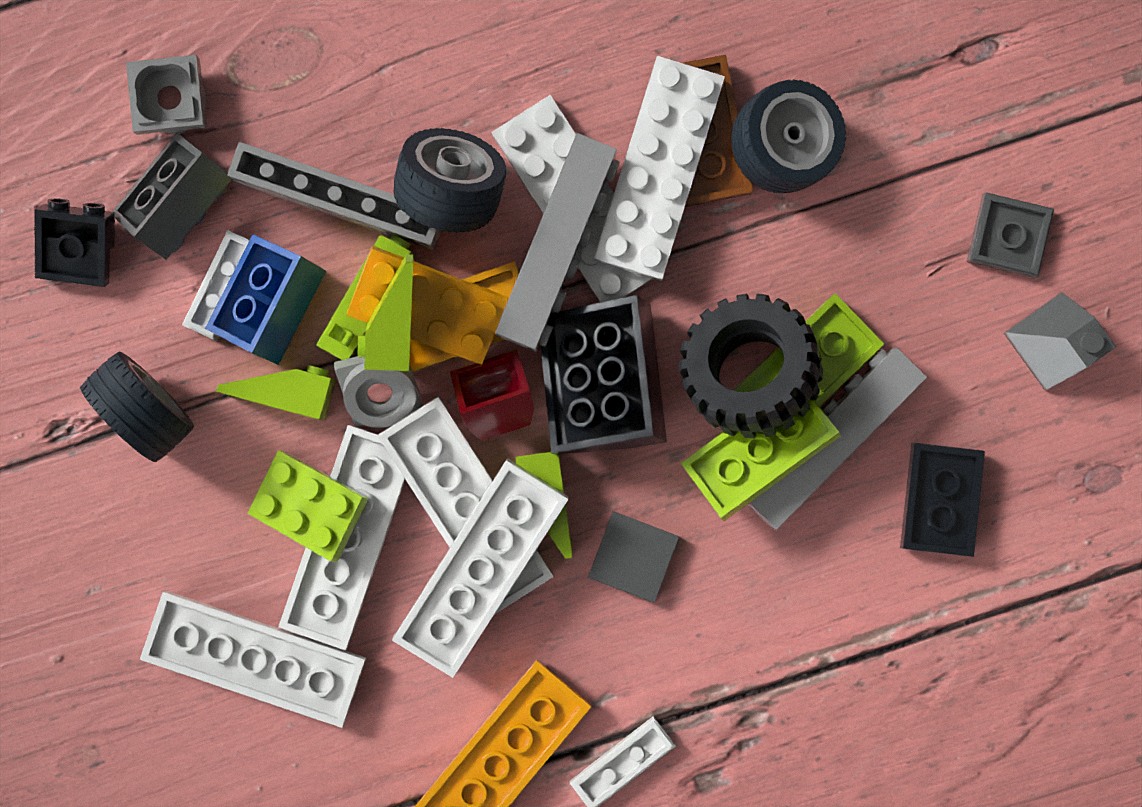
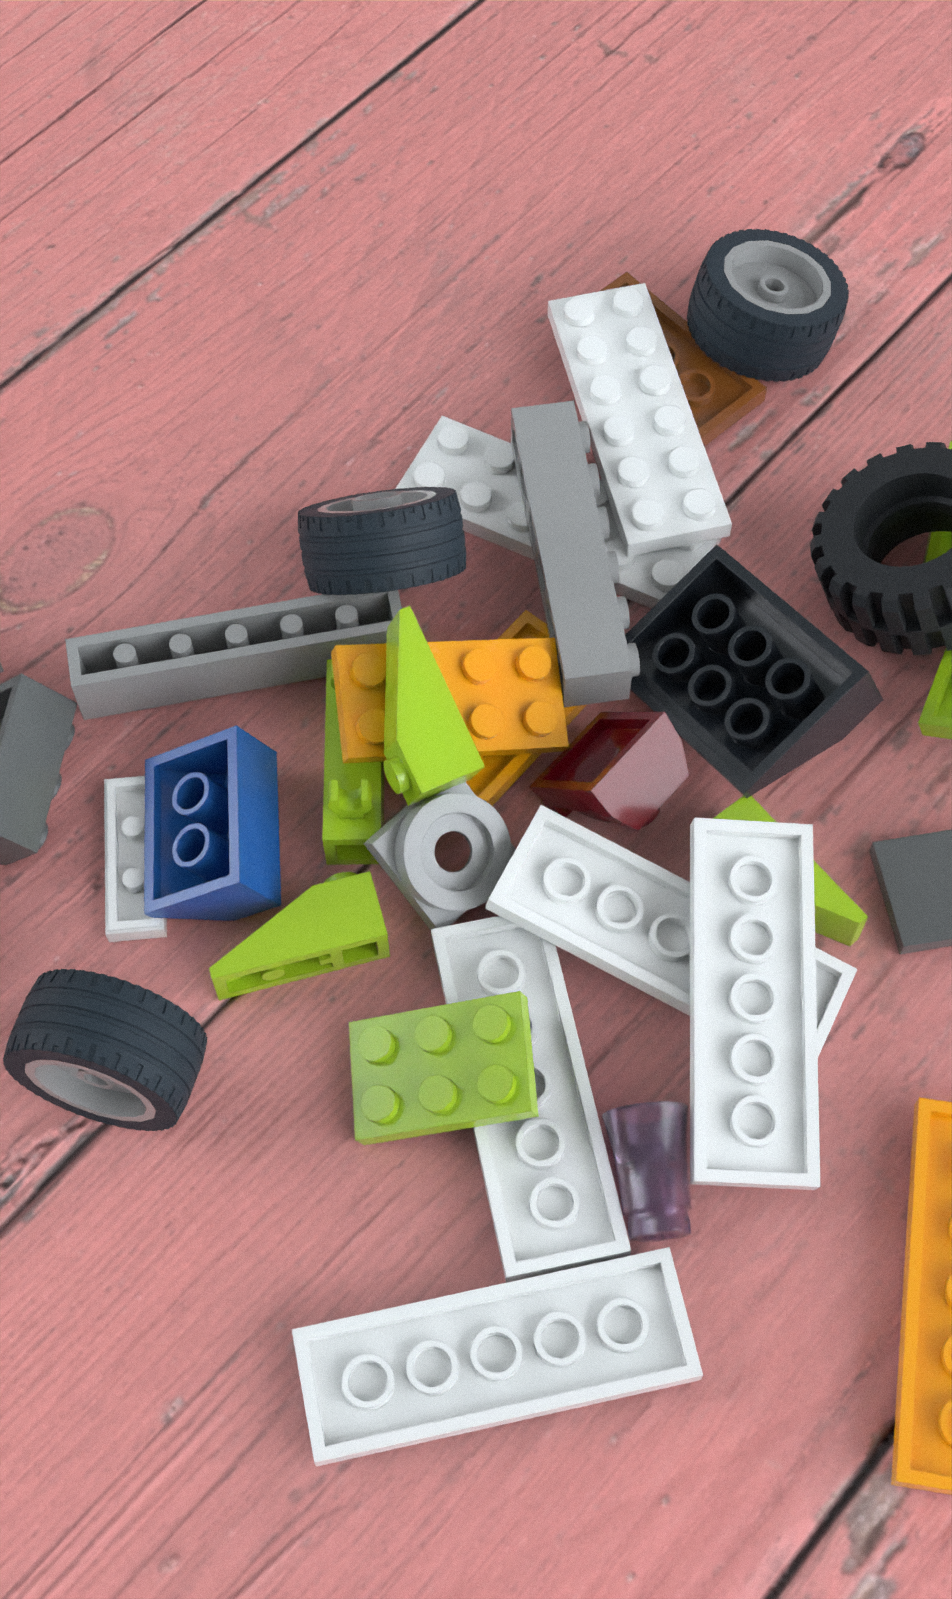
camera: 35 degrees left, 25 degrees down
(381, 616) = (652, 1168): none -> clear purple plant

